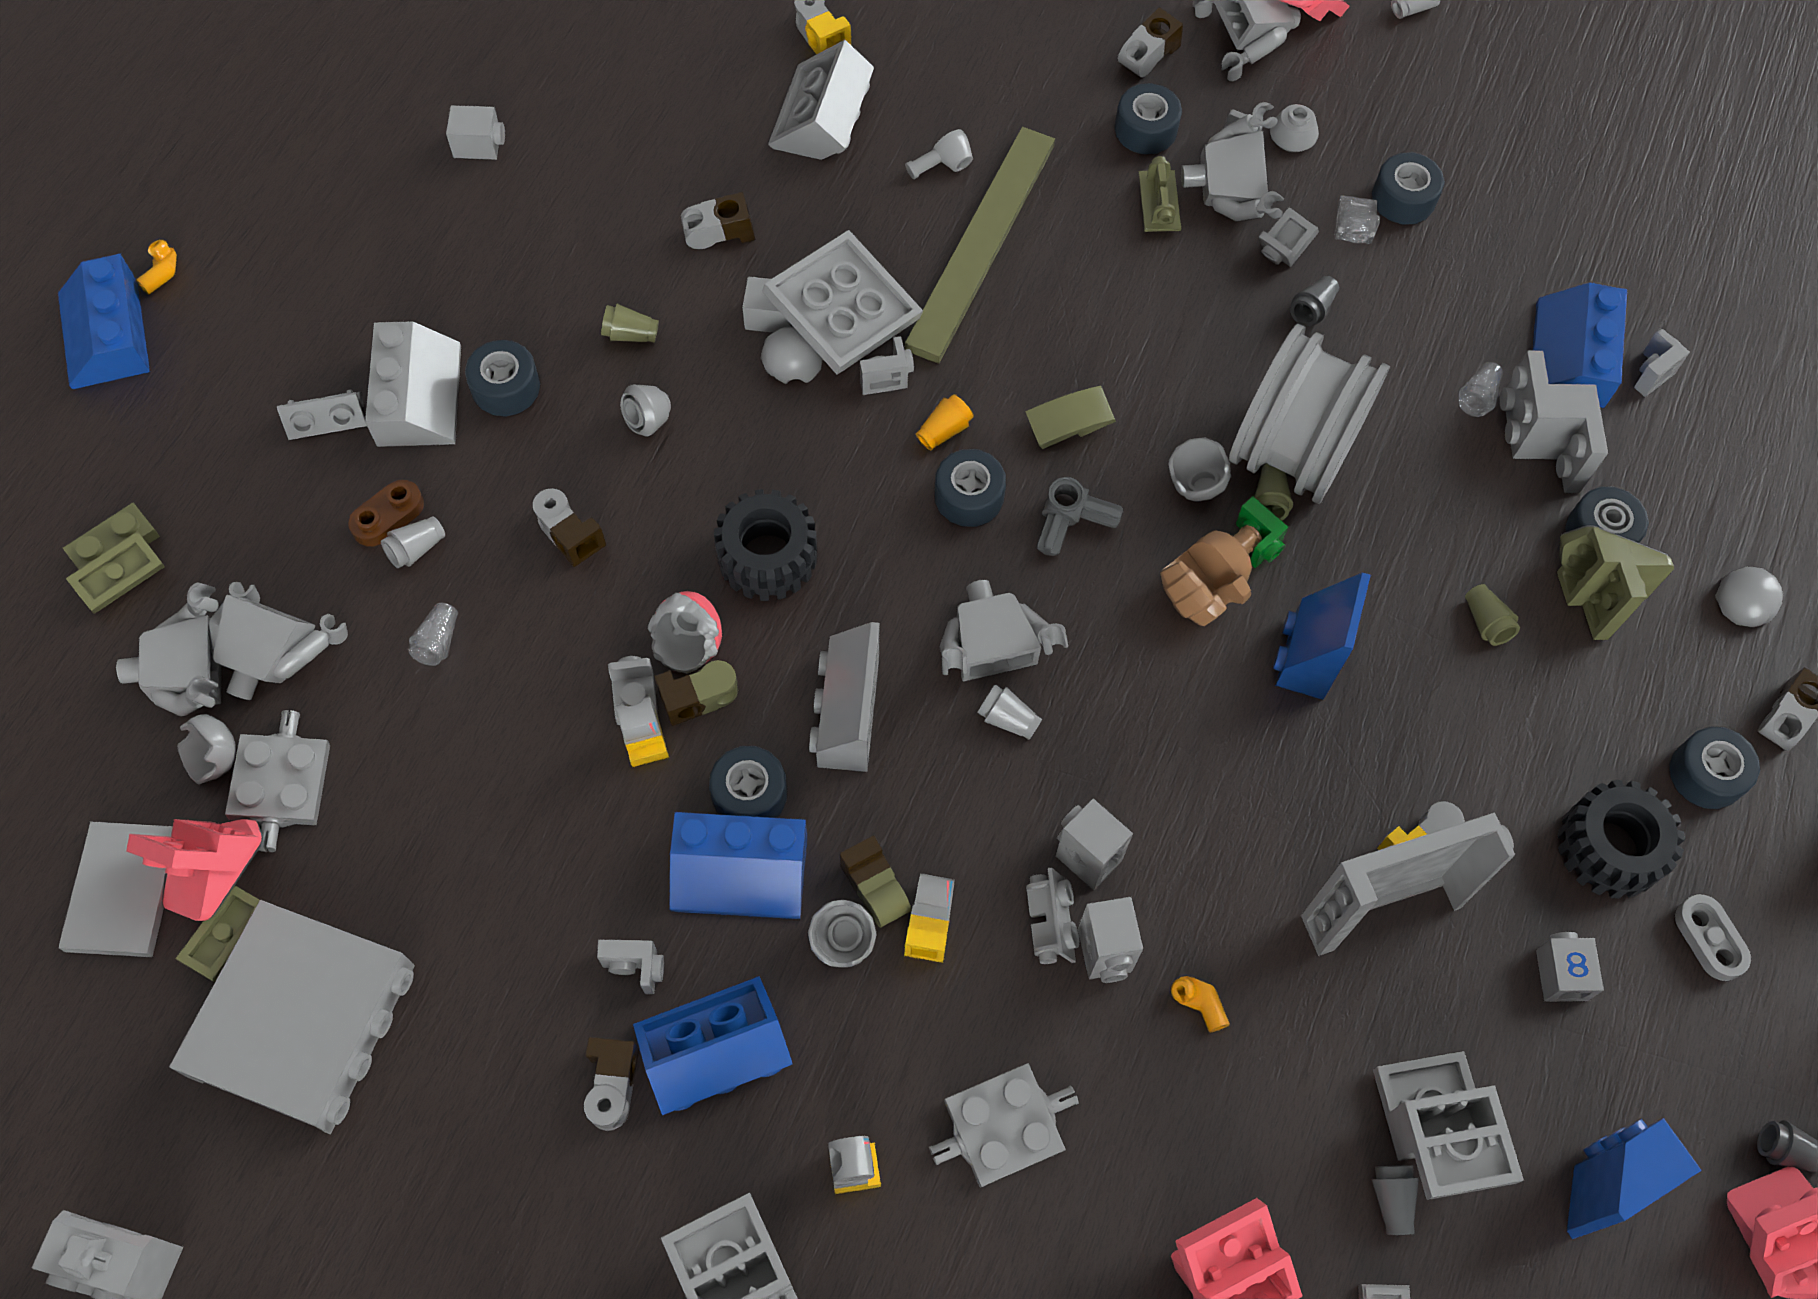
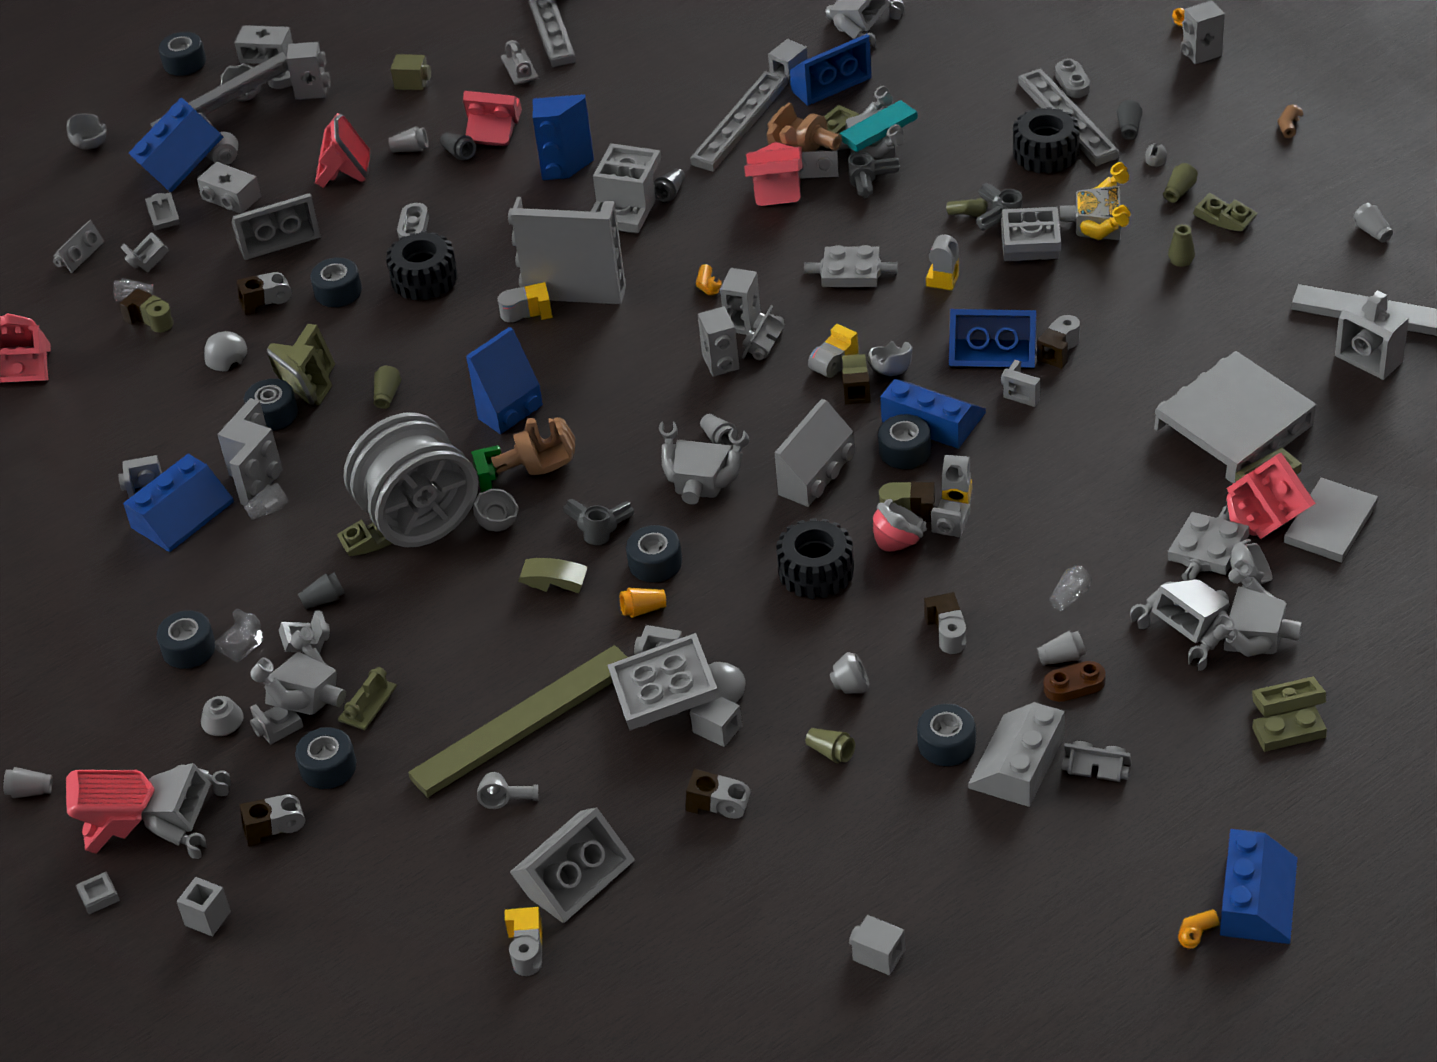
camera: 145 degrees left, 20 degrees down
(1569, 968) = (497, 232): light grey brick -> none

